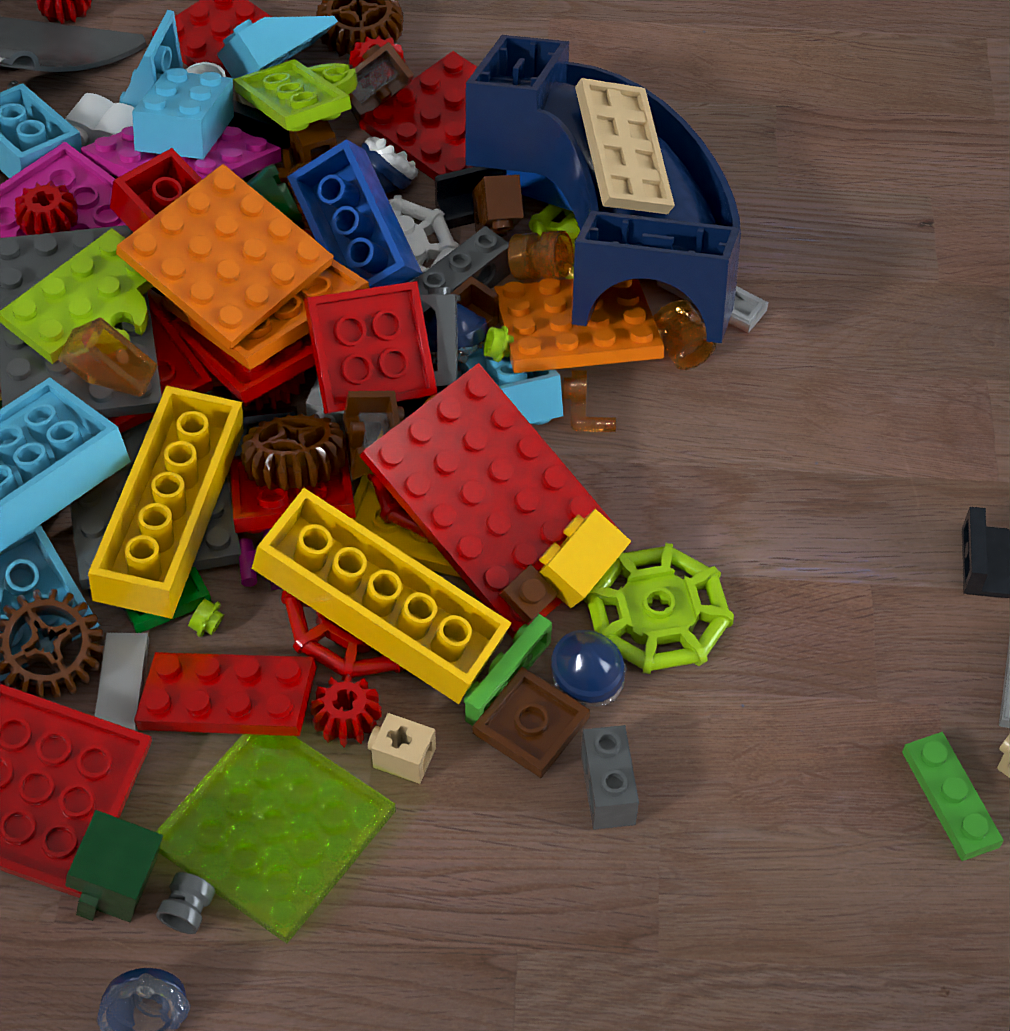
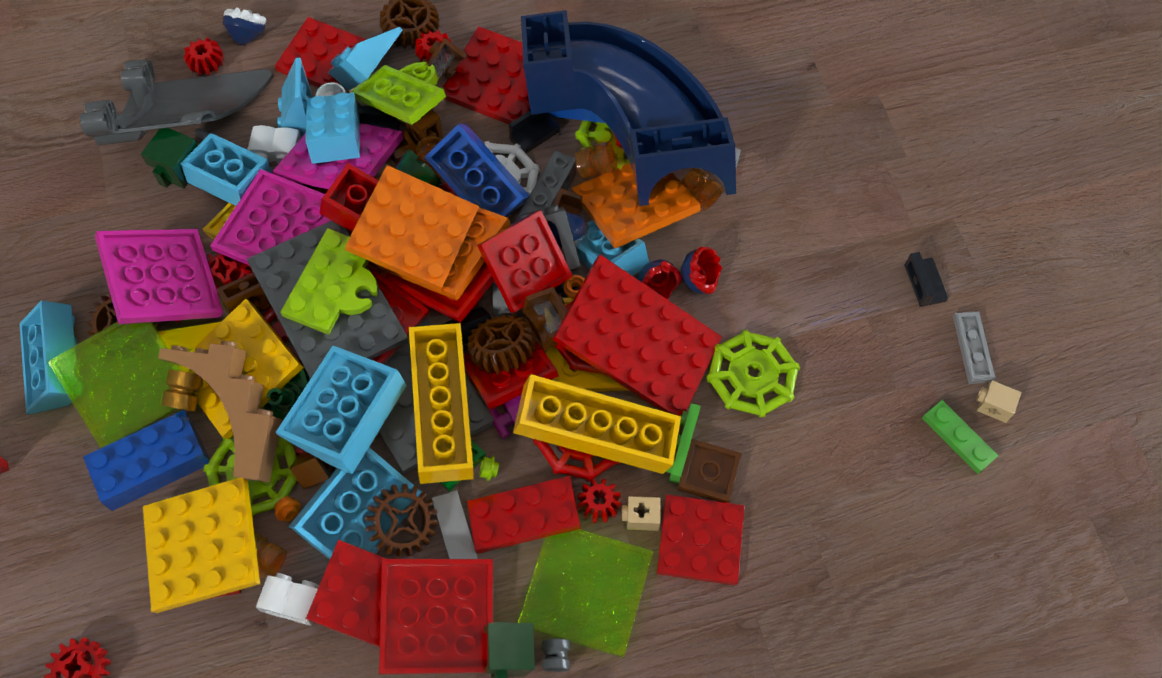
camera: 20 degrees left, 10 degrees up
(46, 209) = (275, 226): red gear -> none
(107, 358) = (365, 322): clear orange slope -> none
(391, 168) = (479, 123): hair -> none
(477, 816) = (701, 540): none -> red plate
(497, 343) = (596, 230): lime plate -> none
(498, 203) = (557, 133): reddish brown brick -> none
(528, 594) = (680, 392): reddish brown plate -> none
(569, 434) = (661, 277): none -> red hair
(576, 391) = (653, 249): clear orange plate -> none
(583, 557) = (703, 359): yellow brick -> none
(588, 668) = (730, 426): dark blue hair -> none
(609, 777) = (769, 492): dark grey brick -> none
(624, 146) = (634, 78): tan plate -> none
(635, 441) = (701, 270): none -> red hair

